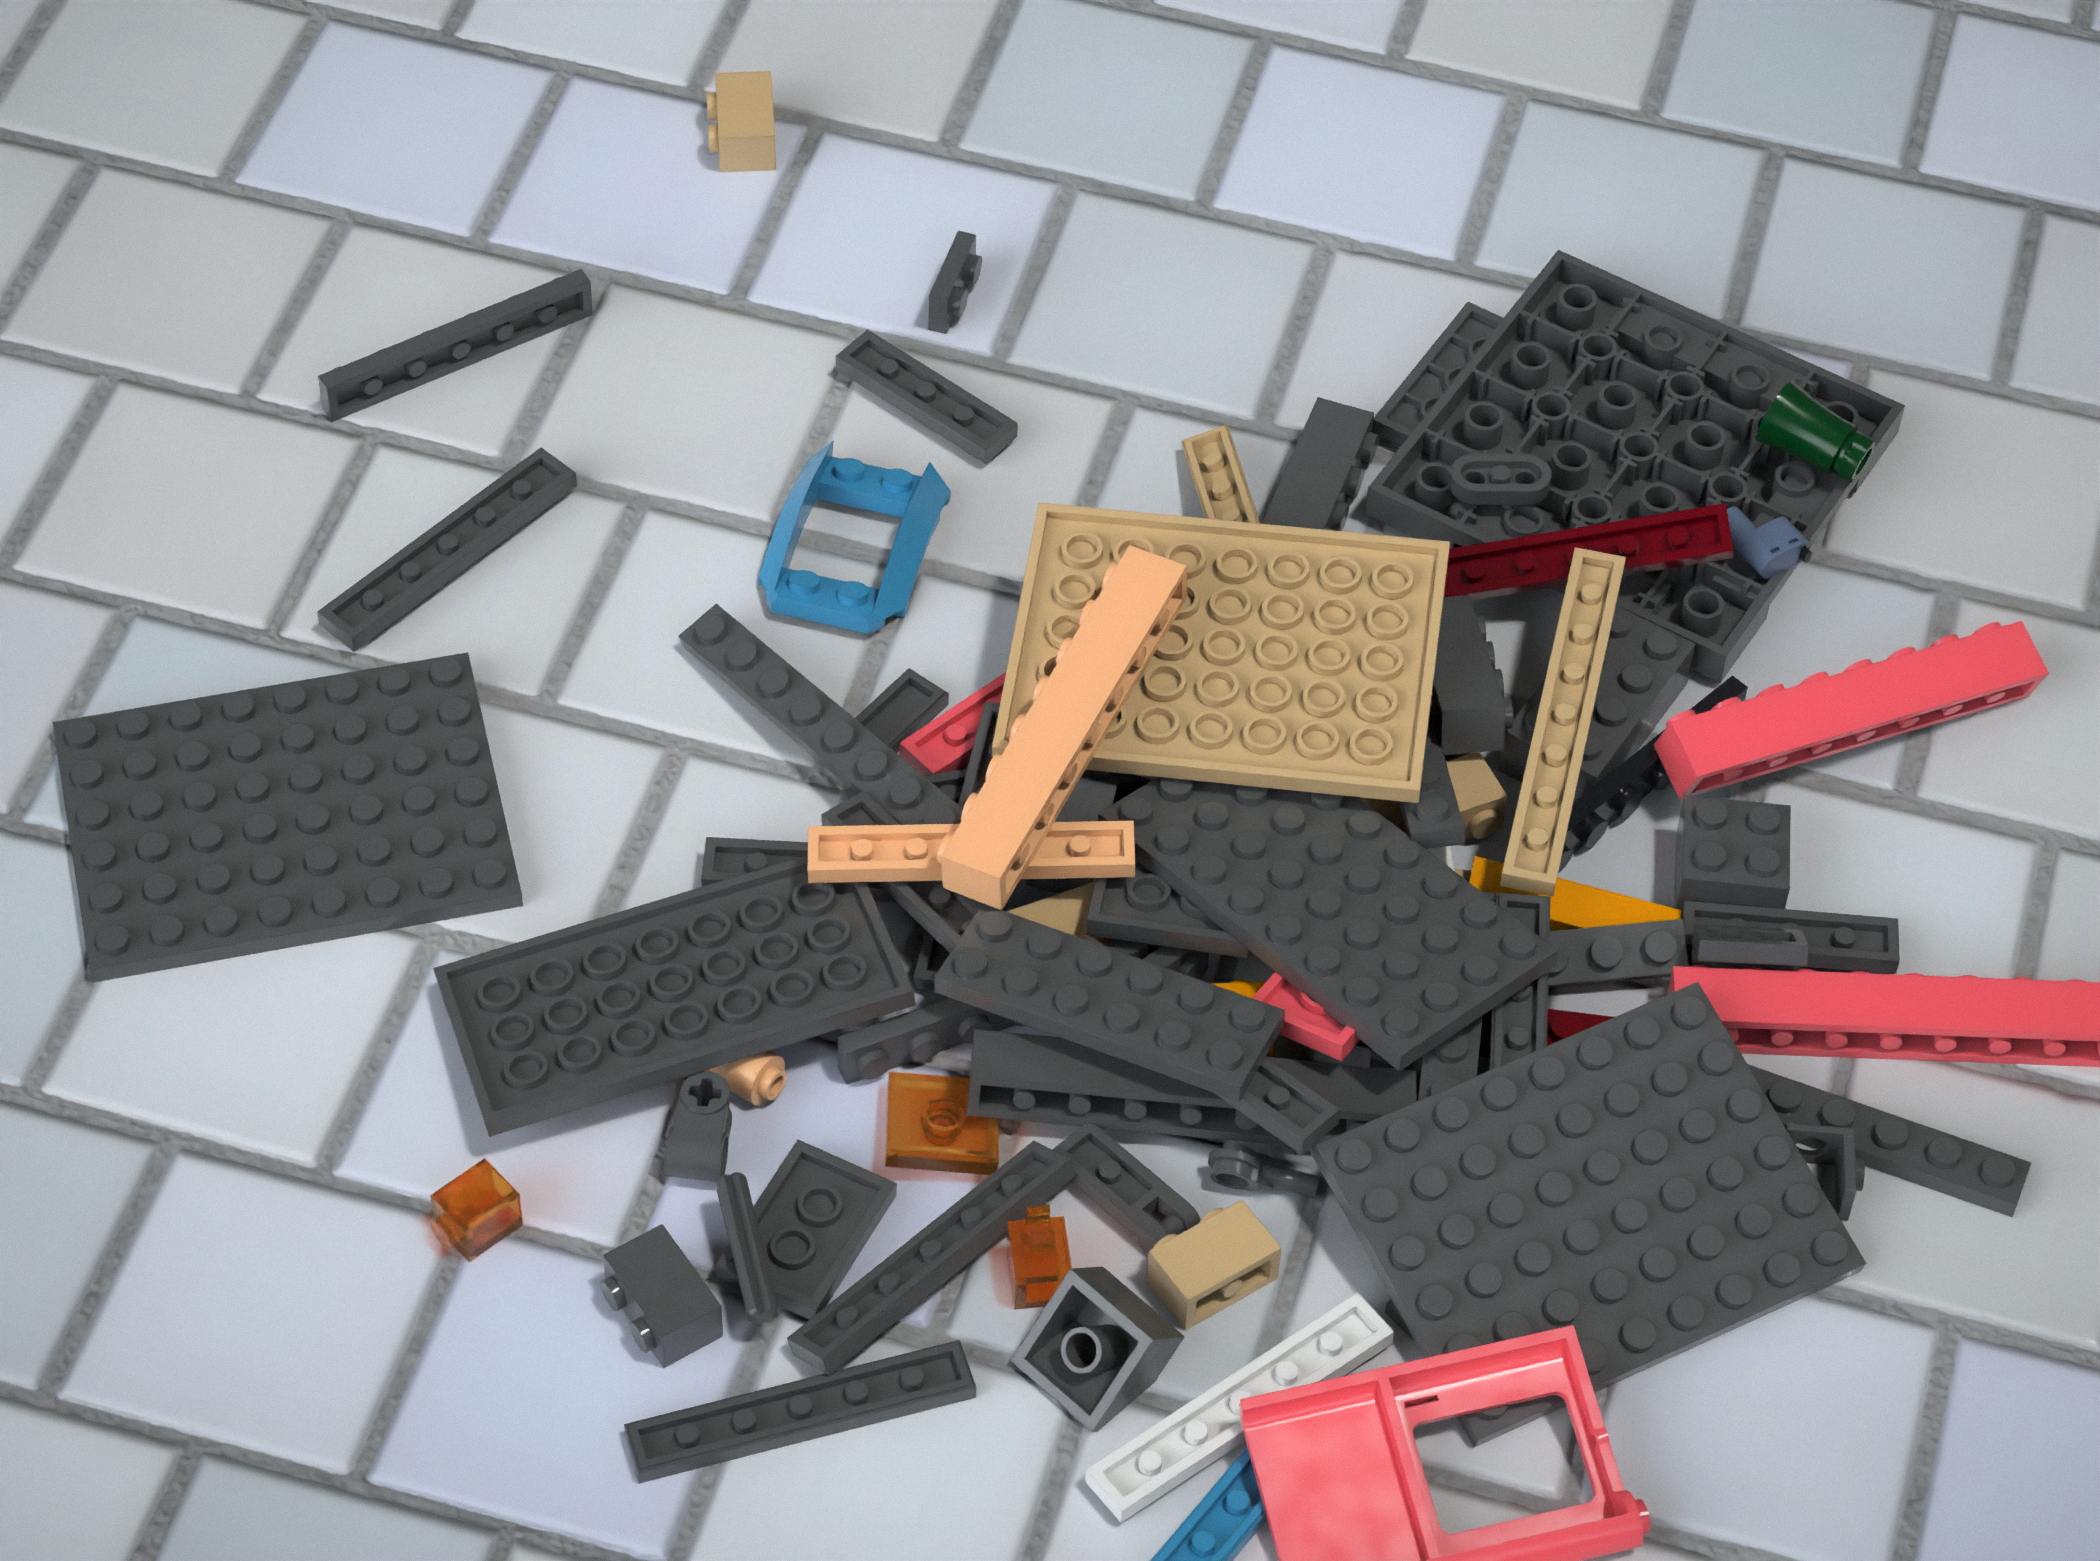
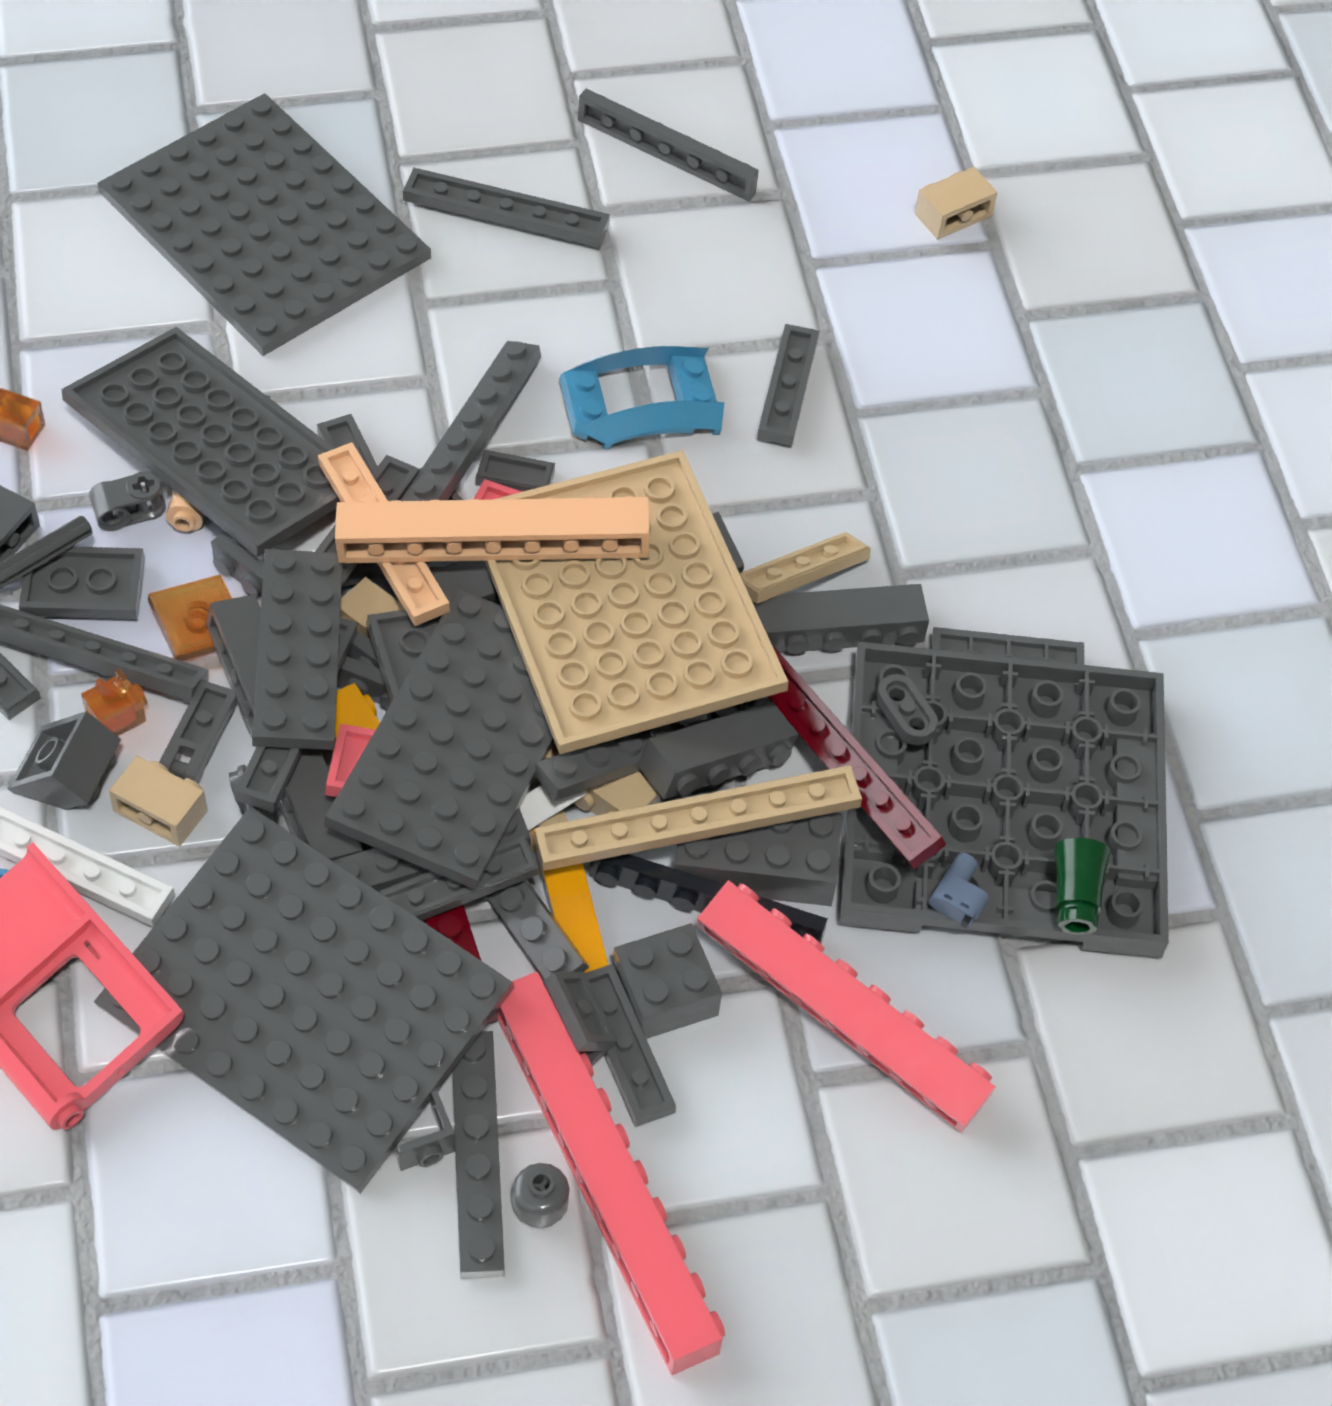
camera: 60 degrees right, 5 degrees up
(950, 289) = (894, 358): dark grey plate -> none
(1959, 1085) = (540, 1195): none -> dark grey head

